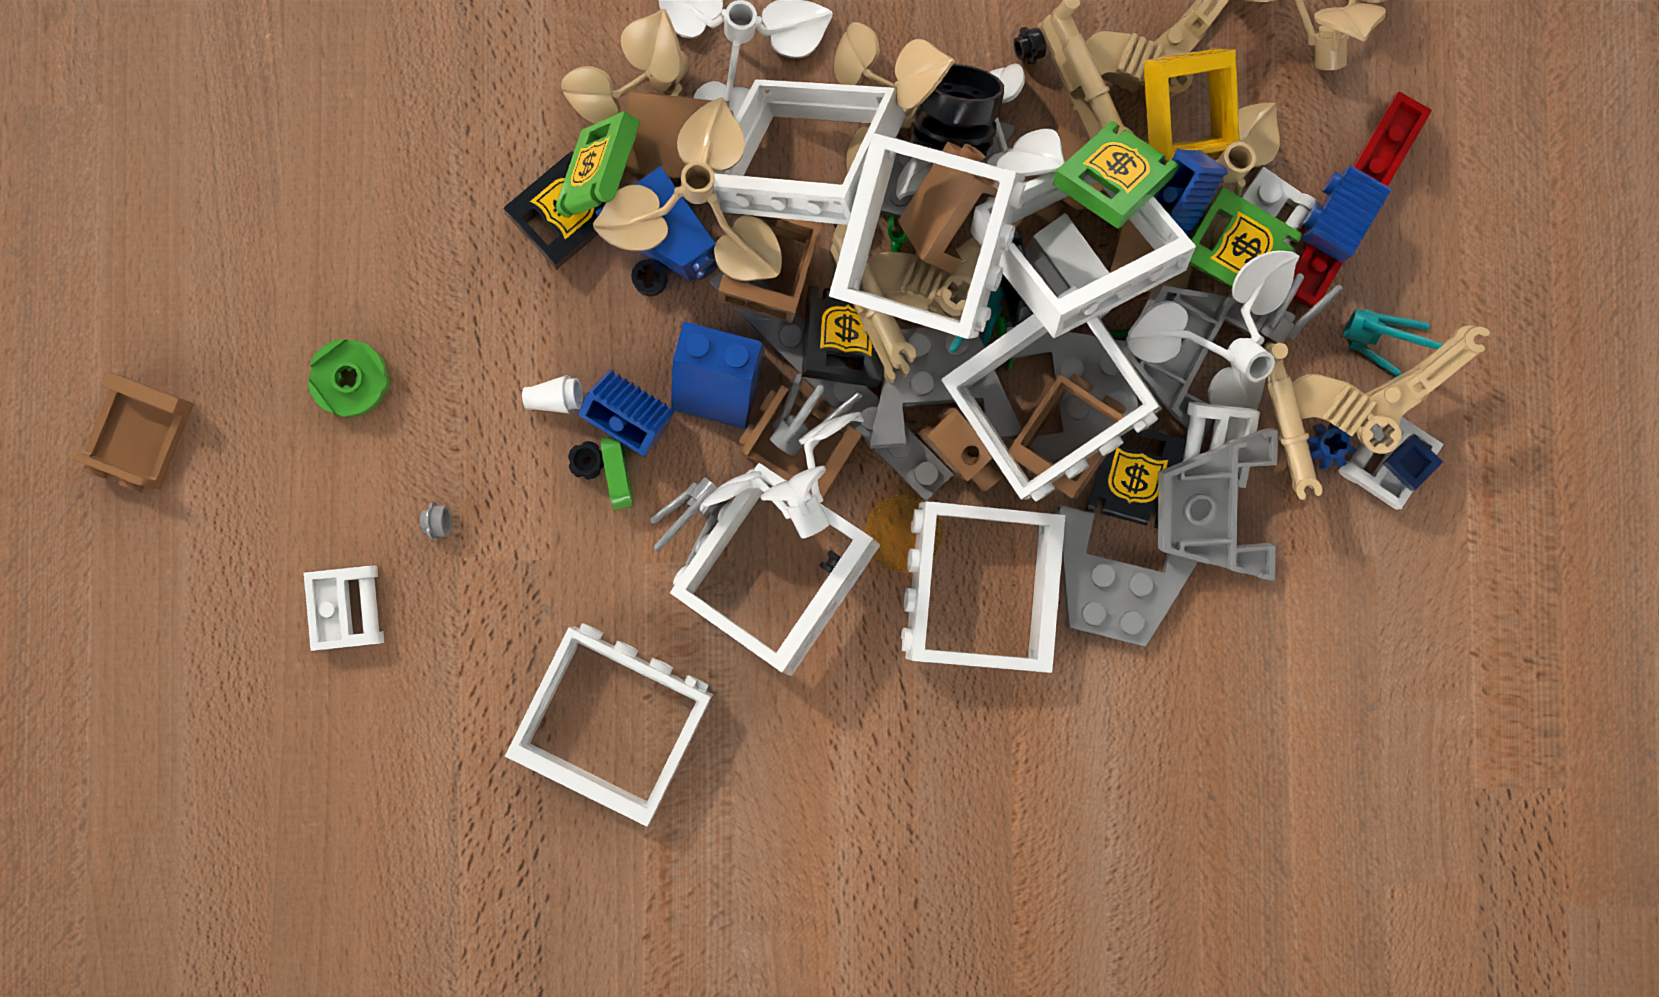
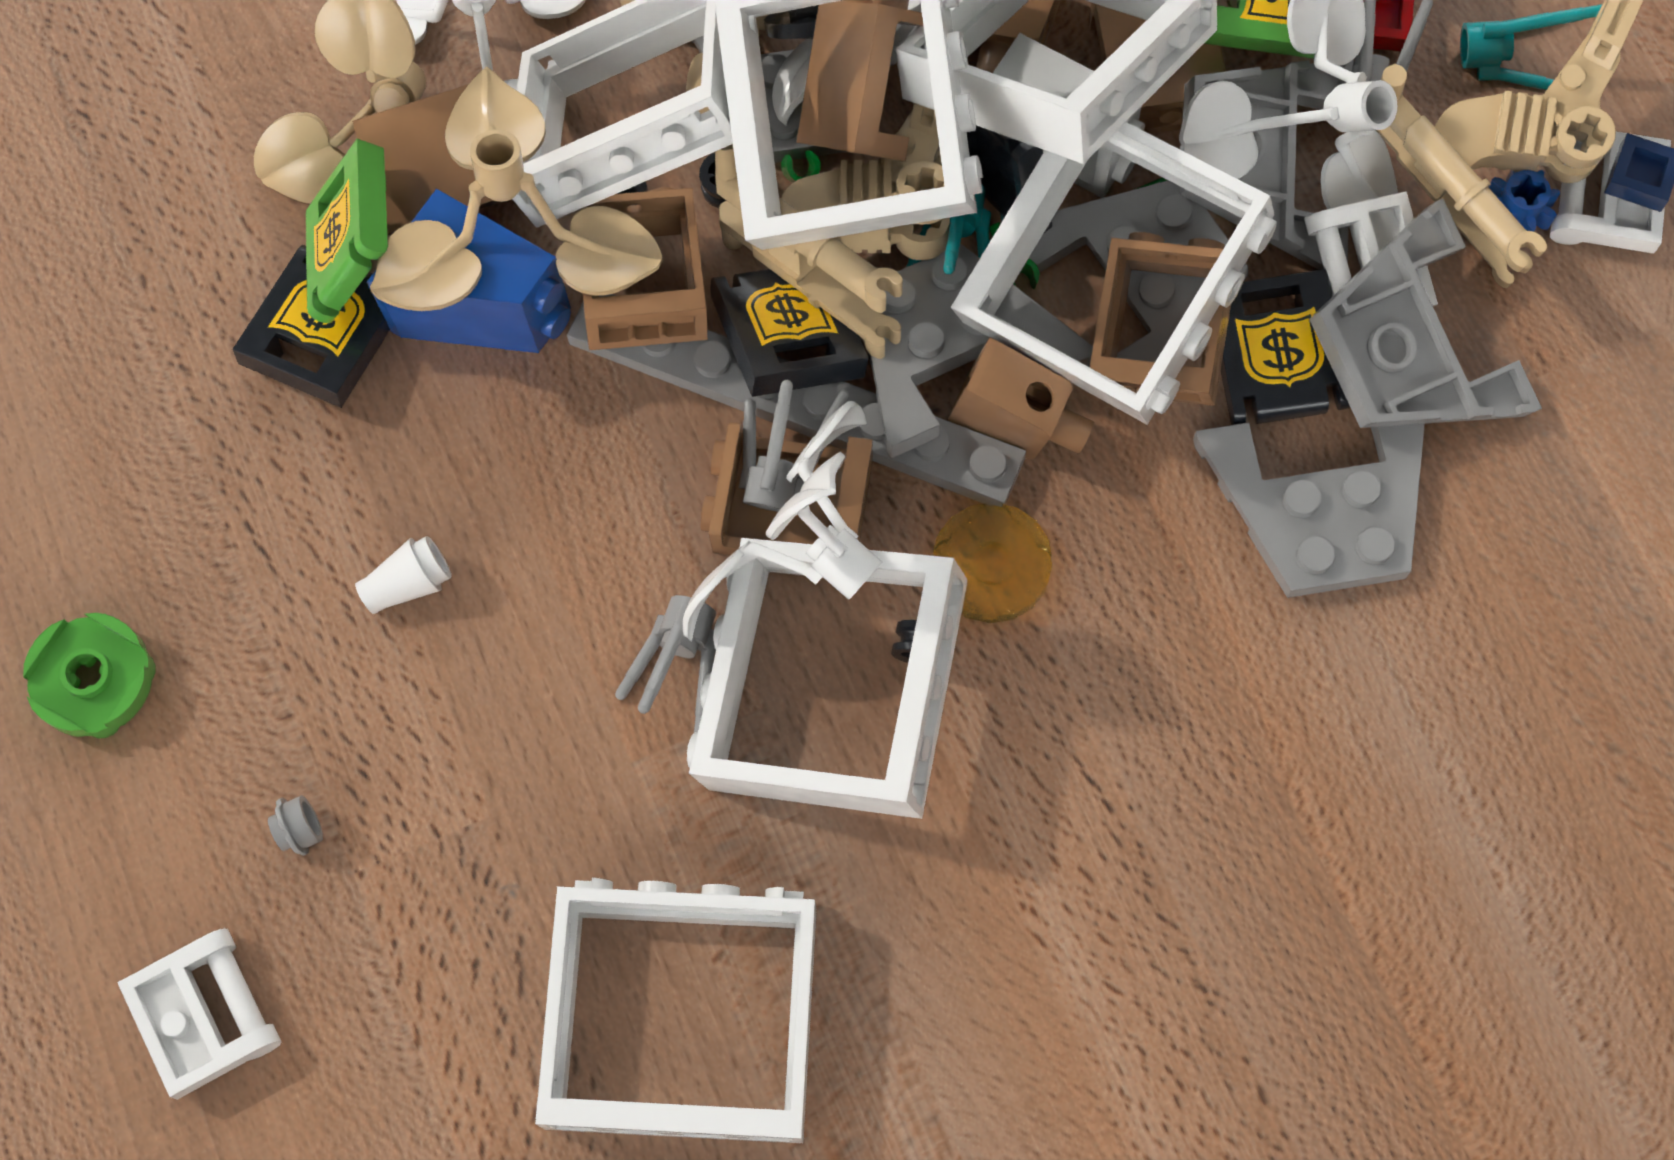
camera: 20 degrees left, 15 degrees down
(576, 458) = (483, 633): black plate -> none
(617, 473) = (540, 643): bright green beam -> none
(626, 412) = (519, 551): blue brick -> none
(657, 269) = (467, 380): black bush -> none
(715, 374) = (628, 440): blue slope -> none
(1044, 597) = (1230, 548): white window -> none

